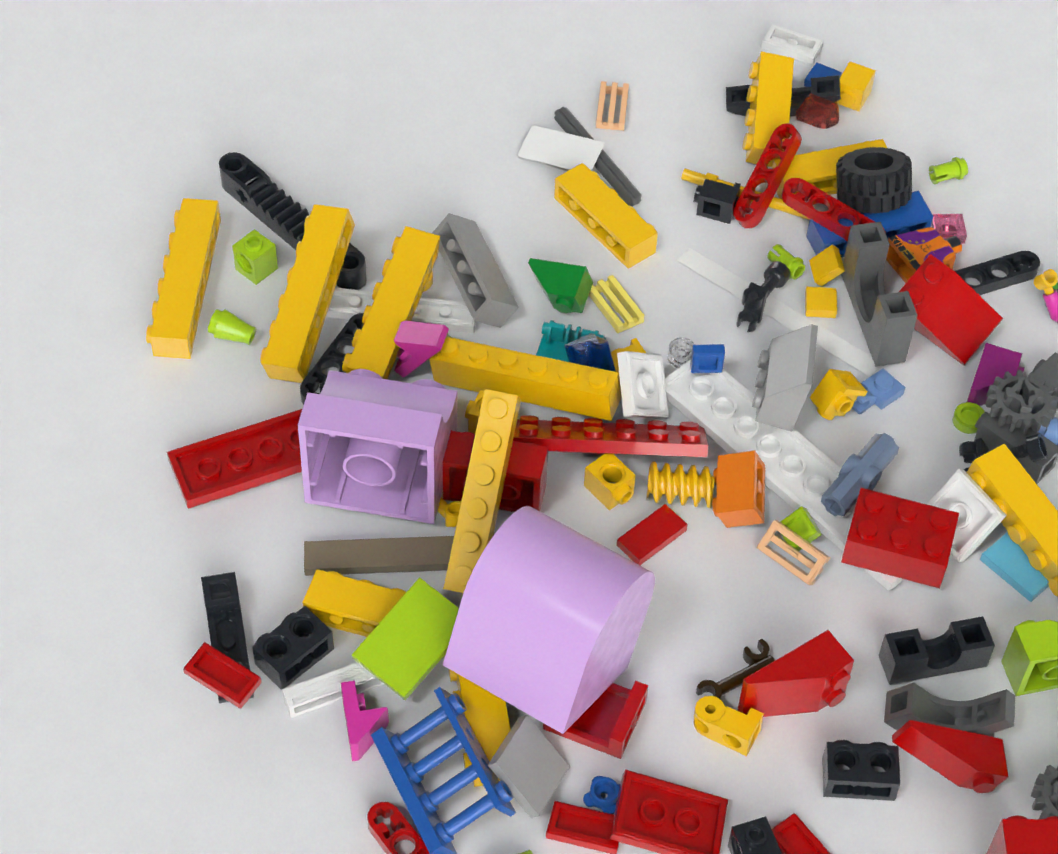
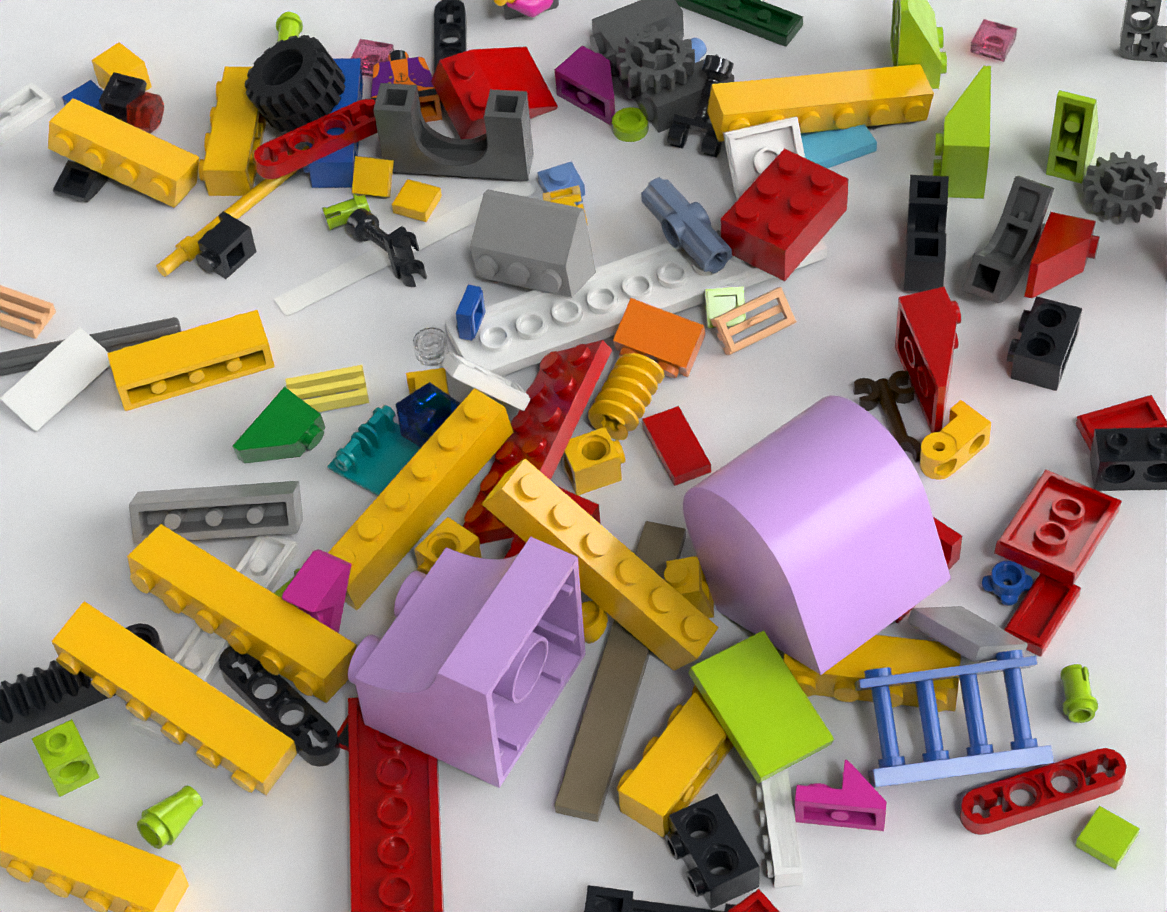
camera: 65 degrees left, 0 degrees up
(772, 176) = (225, 182): red beam -> none

